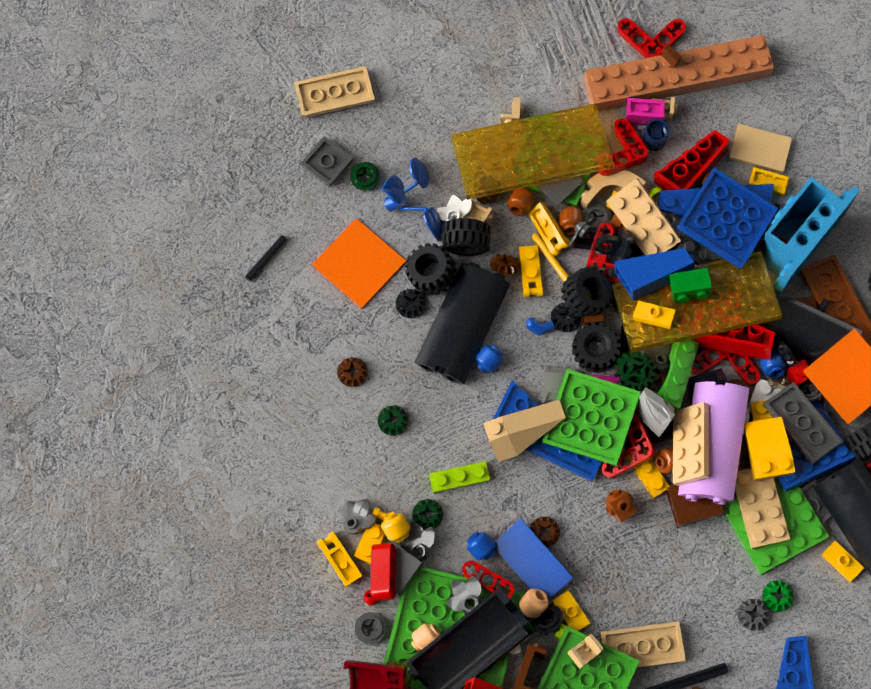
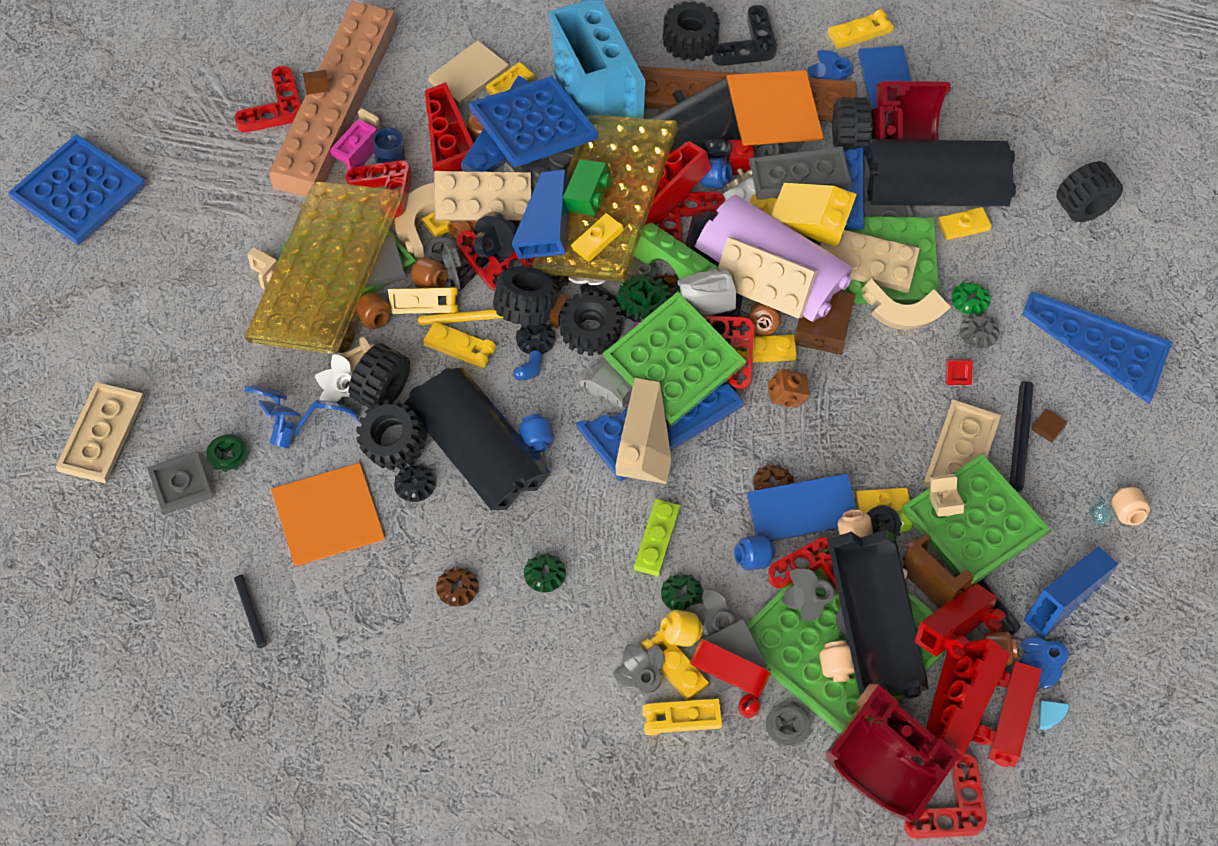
camera: 60 degrees left, 15 degrees down
(499, 262) = (435, 362): reddish brown gear -> none
(706, 615) = (958, 371): none -> red plate
(728, 555) = (904, 316): none -> tan arch

